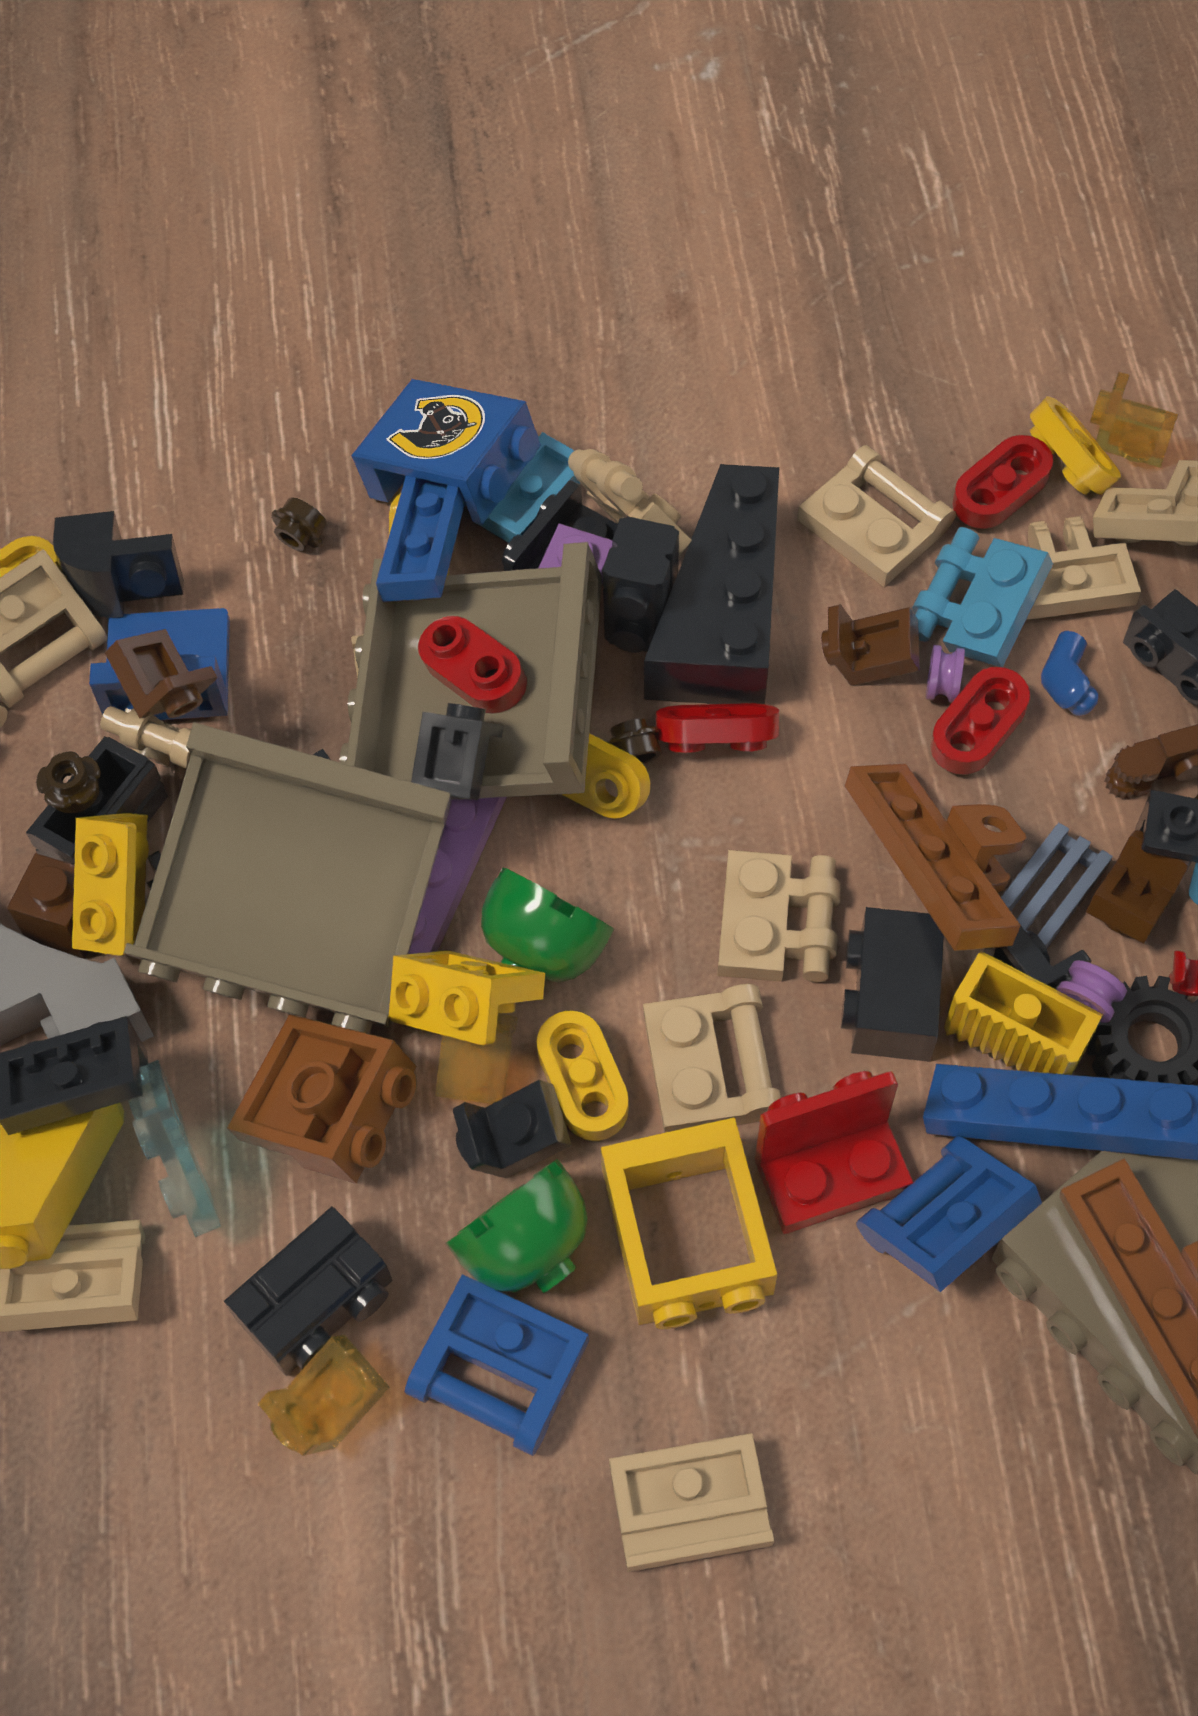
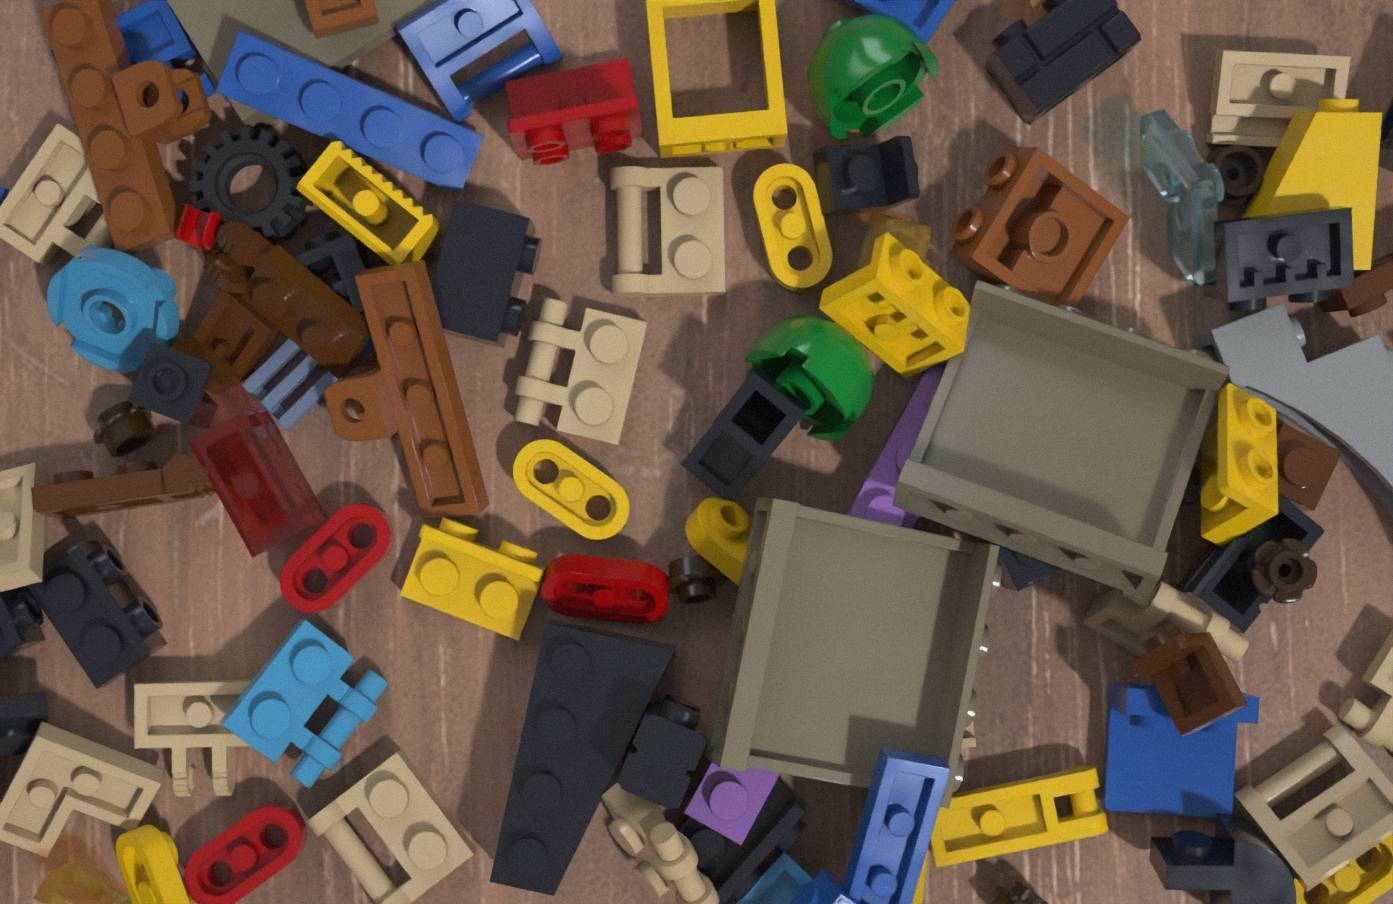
camera: 175 degrees left, 25 degrees up
(113, 1177) = (1248, 168): none -> dark brown plate
(301, 595) = (1017, 817): none -> yellow plate
(454, 750) = (885, 550): black bracket -> none
(468, 659) = (857, 669): red plate -> none
(601, 863) = (744, 435): none -> black brick
(769, 804) = (571, 490): none -> yellow plate
(843, 722) = (473, 579): none -> yellow bracket
(871, 645) = (429, 661): reddish brown bracket -> none
(945, 673) = (361, 616): medium lavender bush -> none
(1065, 679) = (240, 601): blue arm -> none
(1070, 761) = (258, 480): none -> clear red brick
(1088, 924) = (288, 297): none -> reddish brown hinge
(1094, 988) = (301, 216): medium lavender bush -> none

